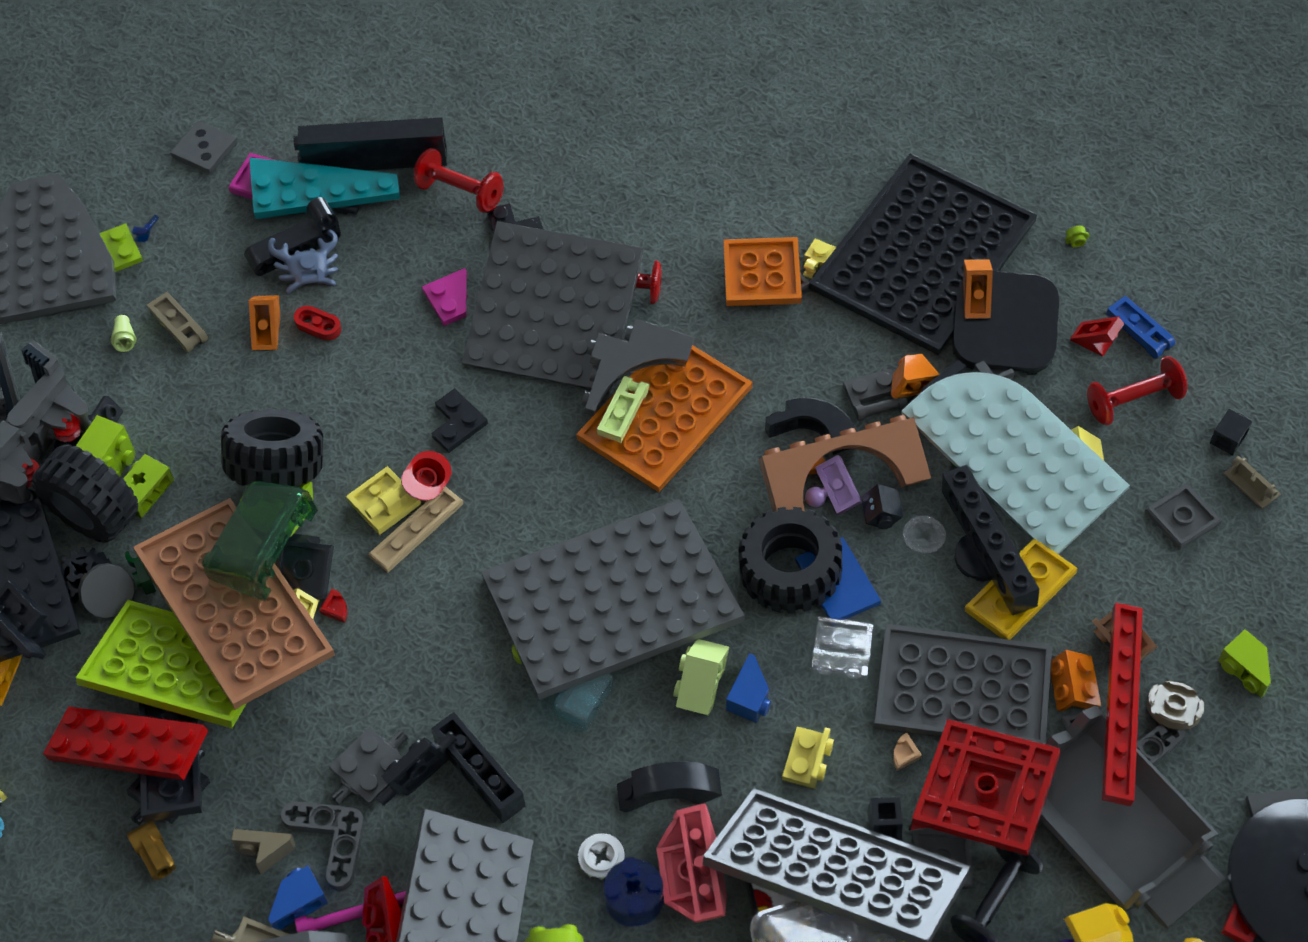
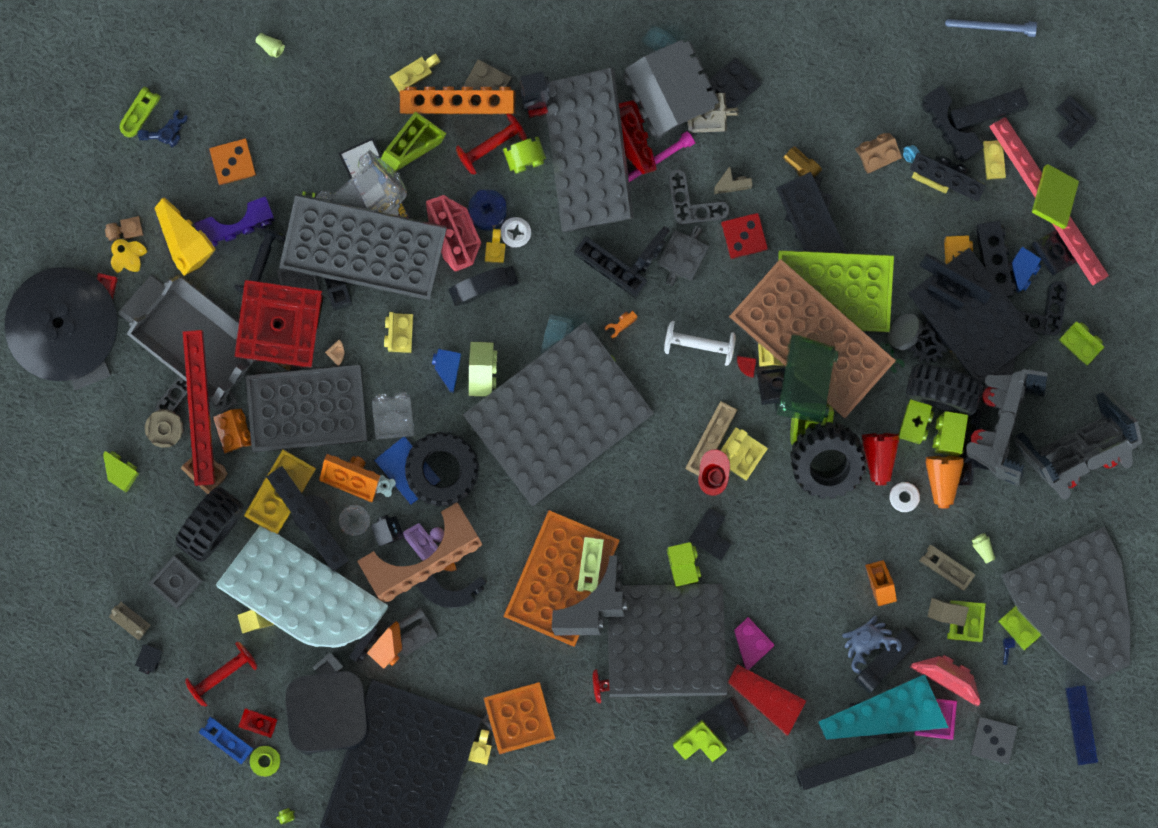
camera: 160 degrees right, 25 degrees up
(36, 842) = (878, 152): none -> medium nougat bracket
(97, 139) = (1081, 725): none -> clear blue plate
(126, 742) = (844, 223): red plate -> none
(136, 411) = (944, 478): none -> orange cone
(174, 259) = (974, 623): none -> lime plate
(192, 399) = (911, 490): none -> white piece
(199, 271) = (948, 612): none -> dark tan slope
(199, 458) = (880, 455): none -> red cone
(228, 213) = (950, 677): none -> coral wedge
(274, 774) = (744, 236): none -> red tile
(296, 897) = (698, 156): blue slope -> none
(319, 322) = (841, 592): red plate -> none
(351, 622) = (700, 343): none -> white hose
(429, 169) = (803, 752): red hose -> none
(449, 231) = (771, 700): none -> red wedge
(481, 694) = (625, 320): none -> orange plate
(502, 390) = (682, 564): none -> lime brick
(546, 211) = (700, 738): none -> lime plate
(638, 837) = (495, 251): none -> yellow plate
(873, 573) = (389, 486): none -> light aqua plate
(917, 582) = (350, 476): none -> orange plate
(977, 288) = (351, 724): orange slope -> none
(1089, 306) = (257, 754): none -> lime piece
(1129, 547) = (209, 524): none -> black tyre

